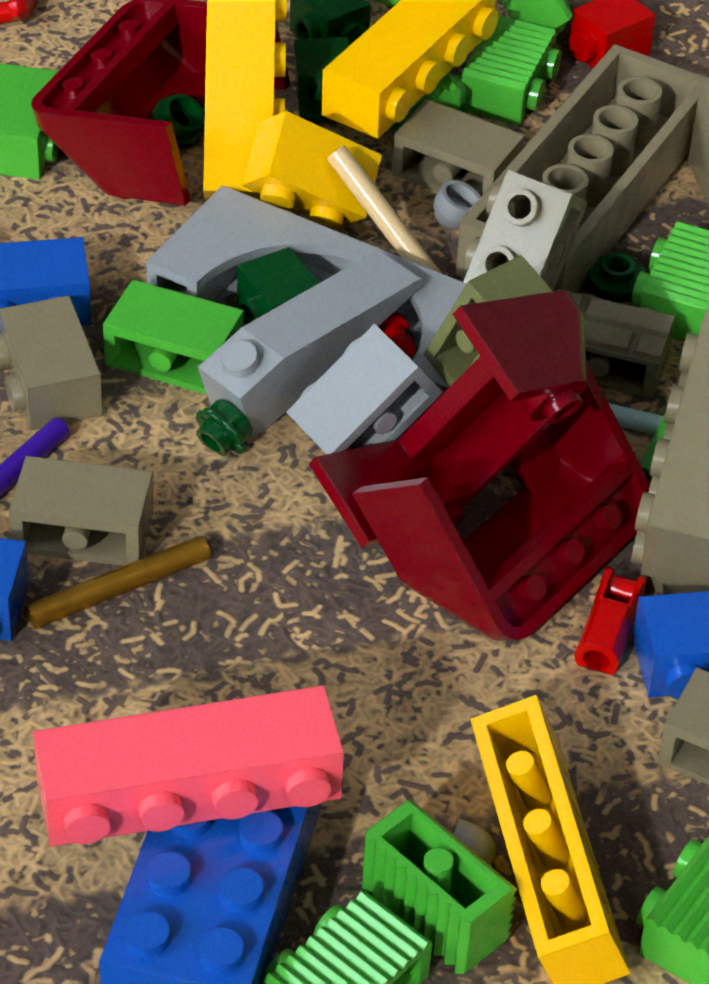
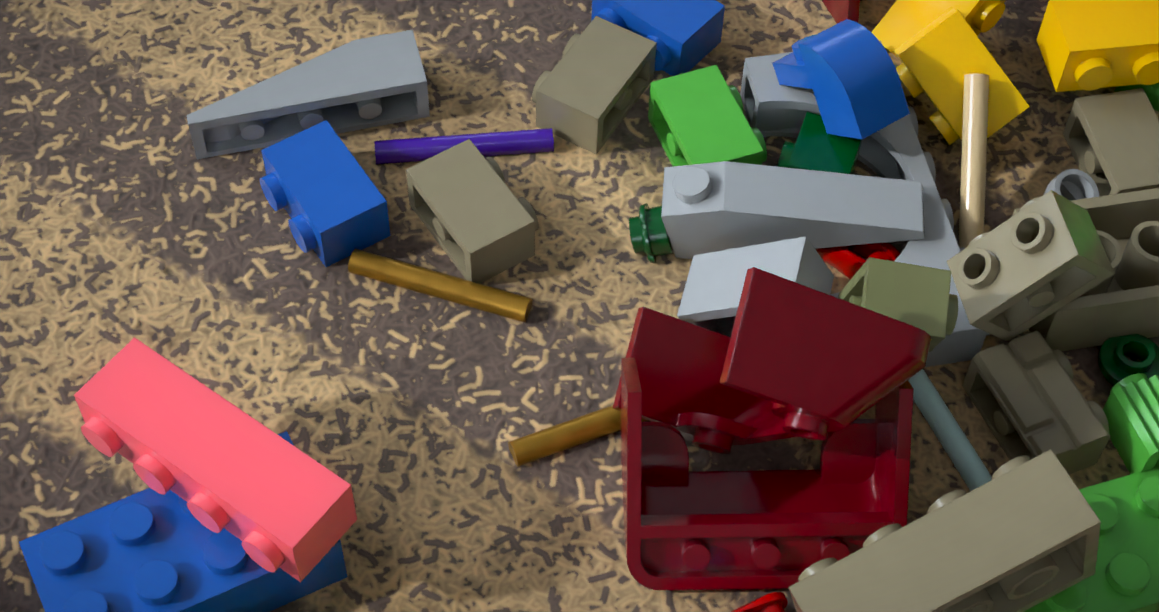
camera: 50 degrees right, 10 degrees up
(261, 206) = (850, 79): none -> blue brick
(344, 594) = (565, 435): none -> pearl gold bar

